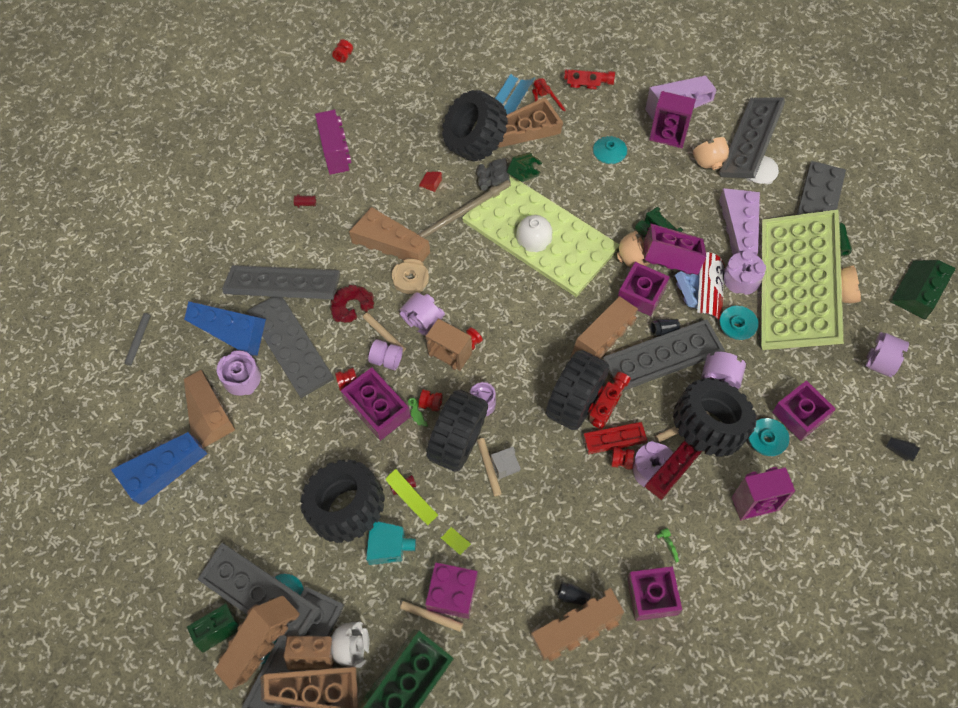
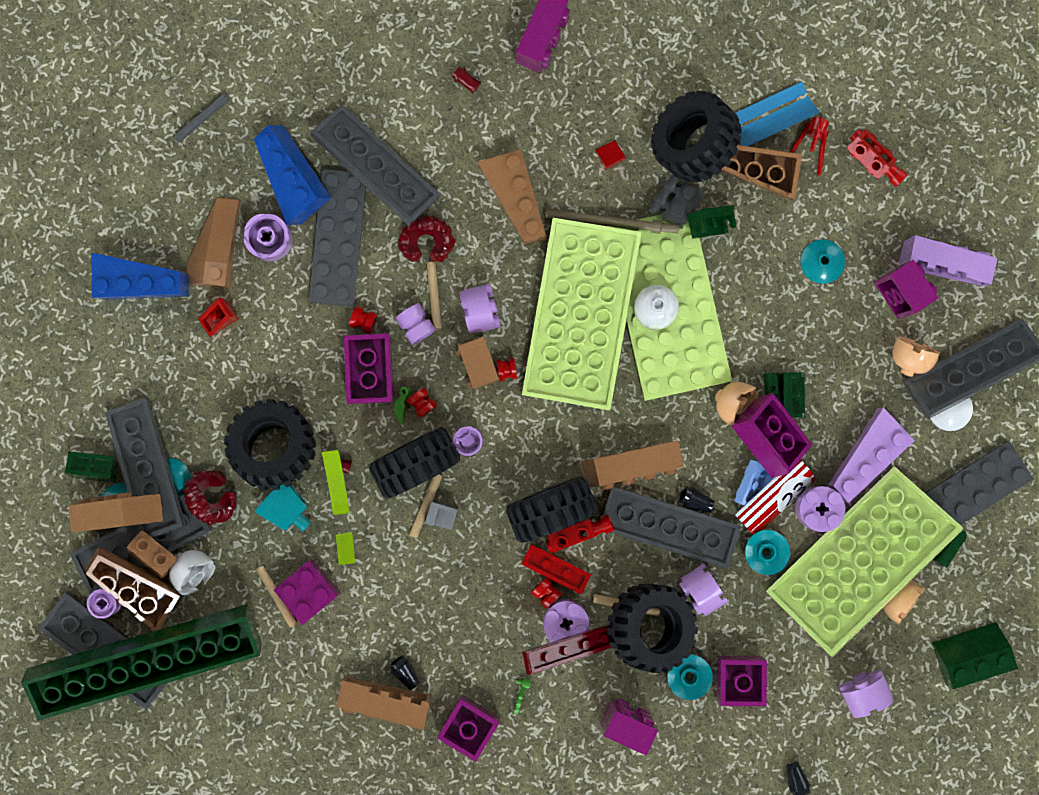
camera: 30 degrees right, 25 degrees up
(239, 450) = (217, 317): none -> red slope
(321, 587) = (197, 502): none -> dark red piece
(408, 267) = (516, 254): tan plate -> none
(492, 273) = (581, 313): none -> yellowish green plate
(644, 288) = (708, 449): magenta brick -> none

